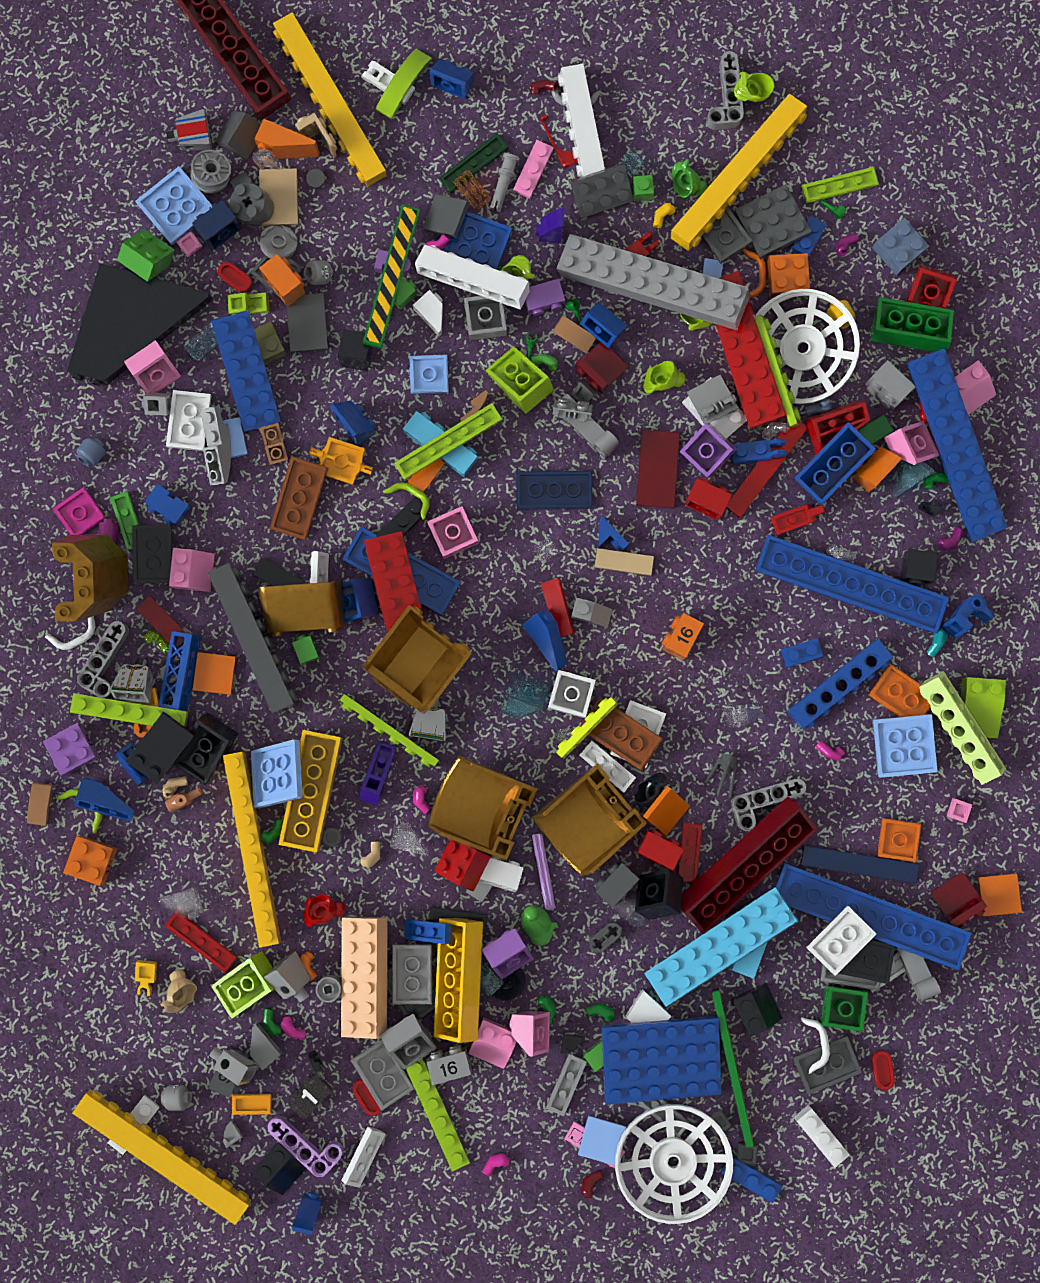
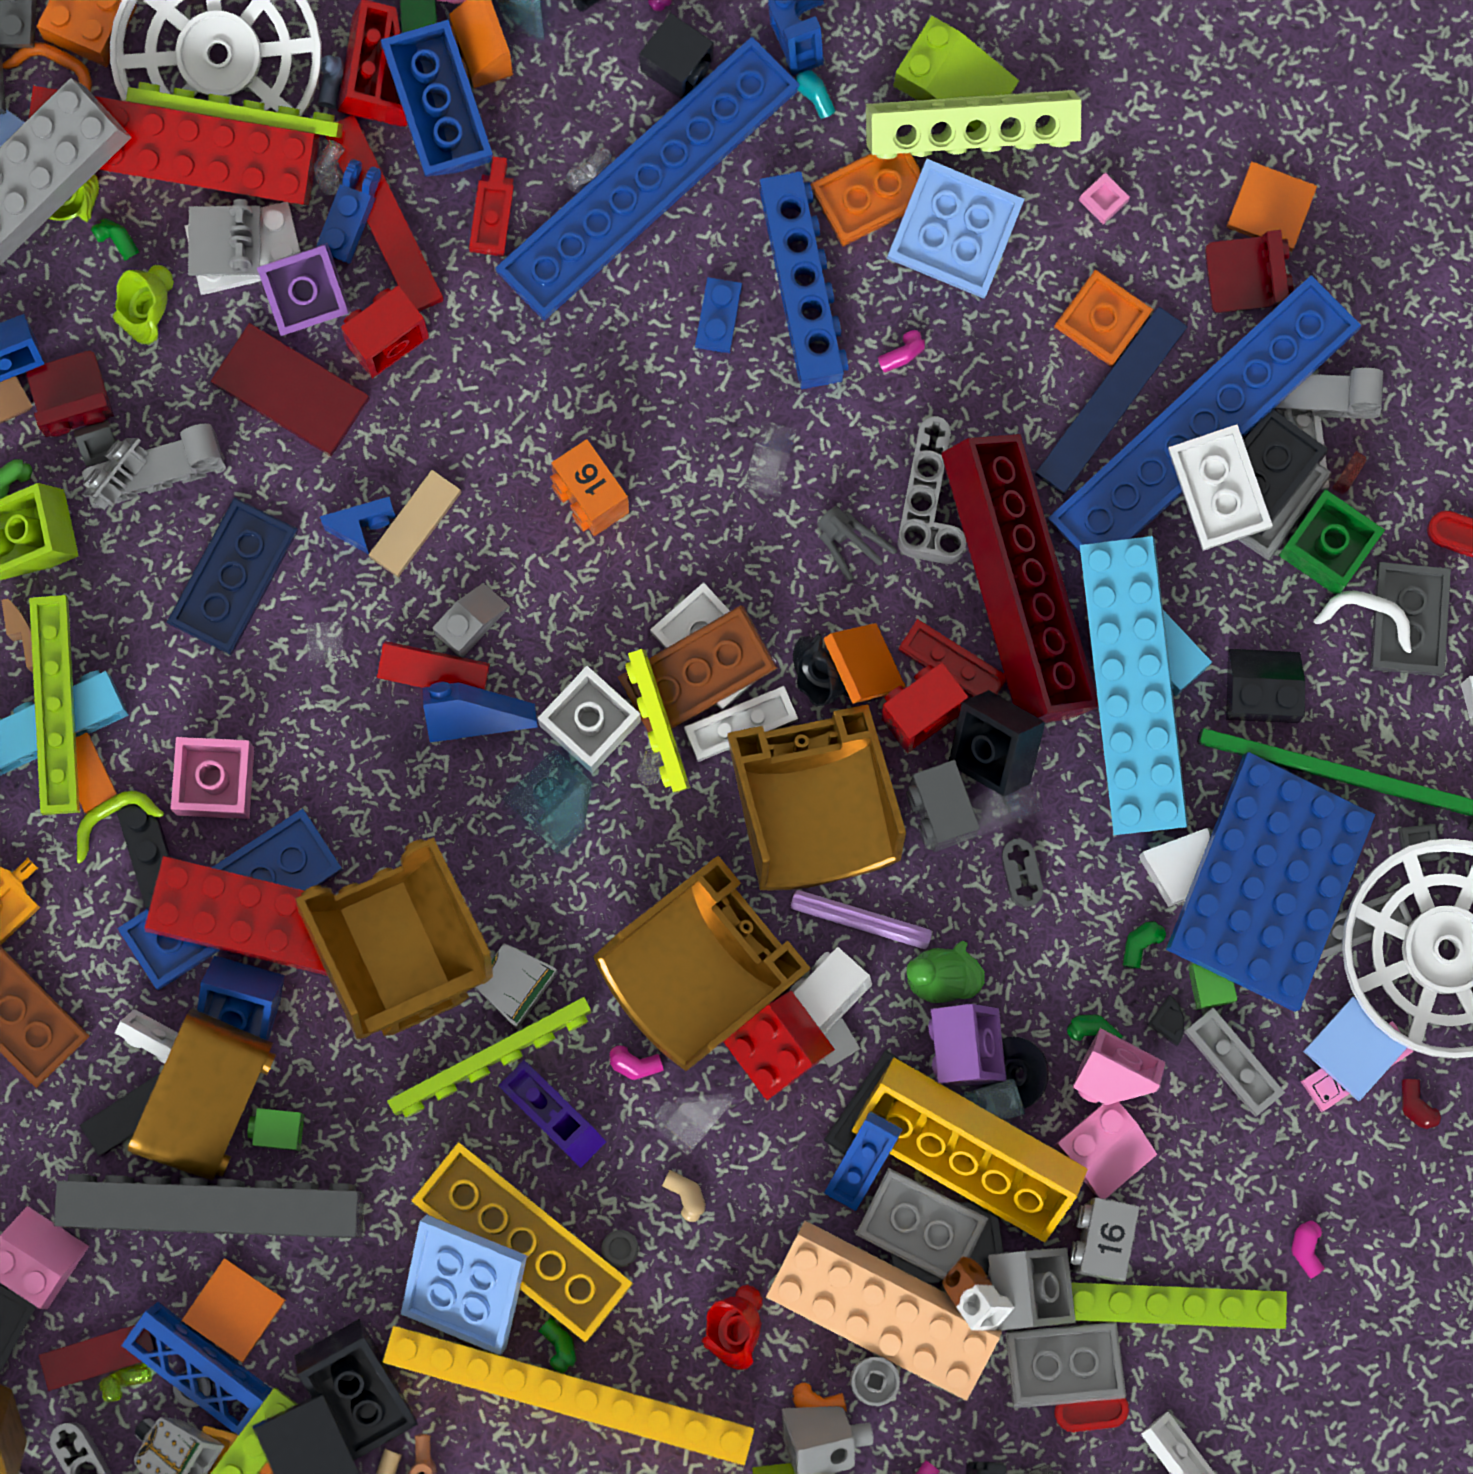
camera: 65 degrees left, 5 degrees down
(390, 1017) = (976, 1296): none -> leg
(689, 349) = (119, 236): none -> green arm
(884, 999) = (1350, 473): none -> clear red tile

